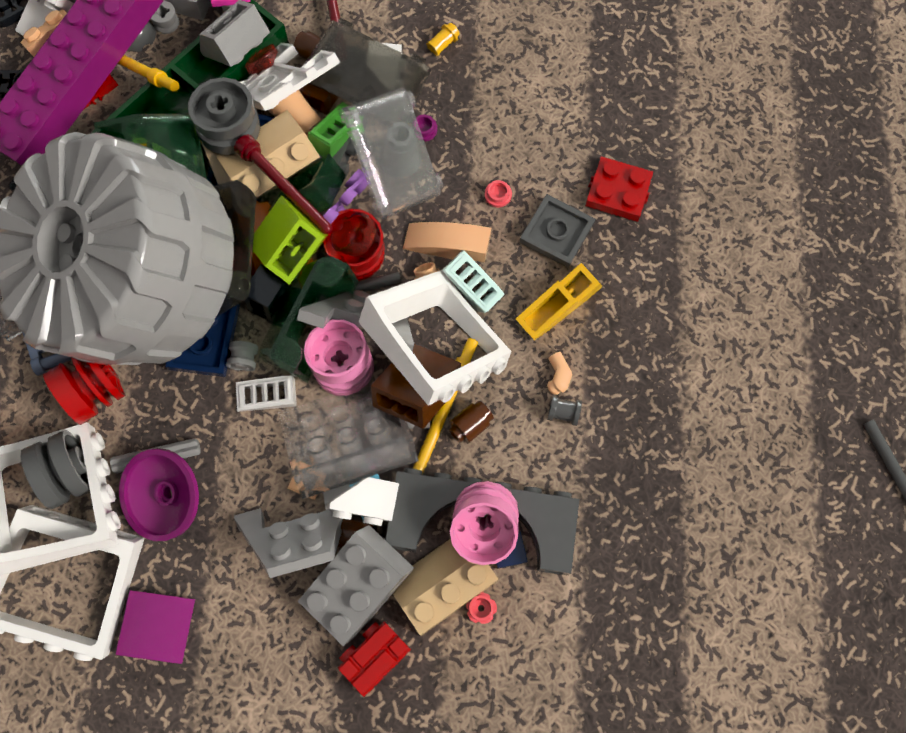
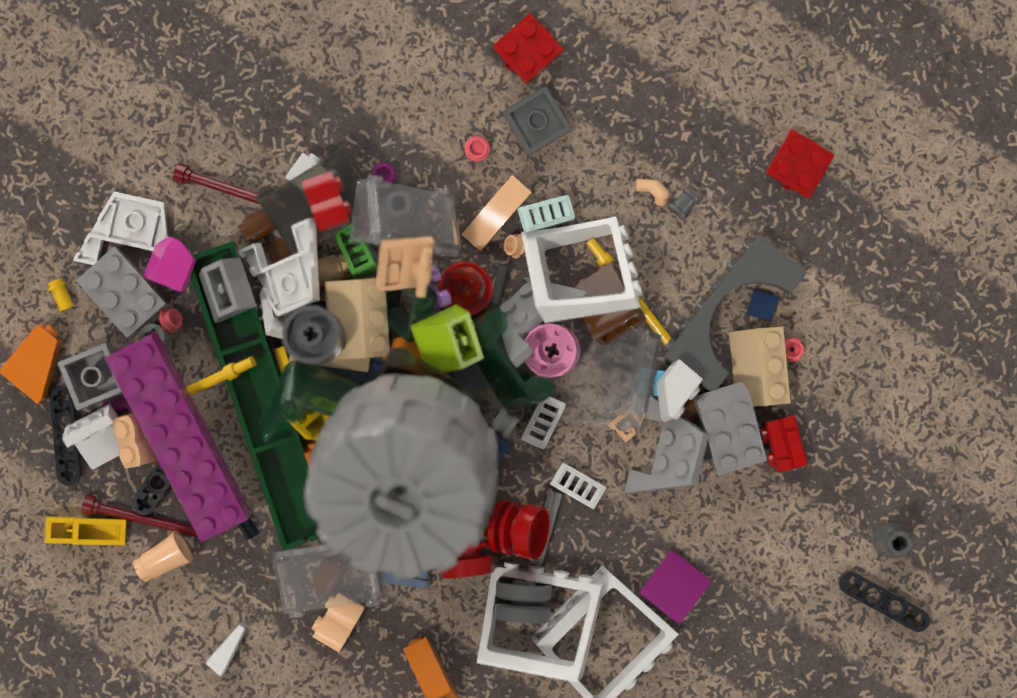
camera: 60 degrees left, 15 degrees up
(132, 421) = (518, 529): none -> red wheel
(147, 496) = (582, 549): magenta dish -> none
(186, 22) = (170, 319): none -> coral plate
(205, 462) = (559, 475): none -> white slope
(250, 151) = (354, 330): dark red piece -> none
(262, 59) = (256, 275): clear red tile -> none
(339, 155) = (405, 264): none -> light nougat plate
(361, 66) = (326, 201): none -> red brick
(446, 36) = (308, 111): yellow pin -> none
(470, 422) = (654, 279): reddish brown brick -> none
(488, 538) = (741, 313): bright pink wheel -> none
(559, 301) = (597, 156): yellow slope -> none
(677, 504) = (799, 164): none -> red plate

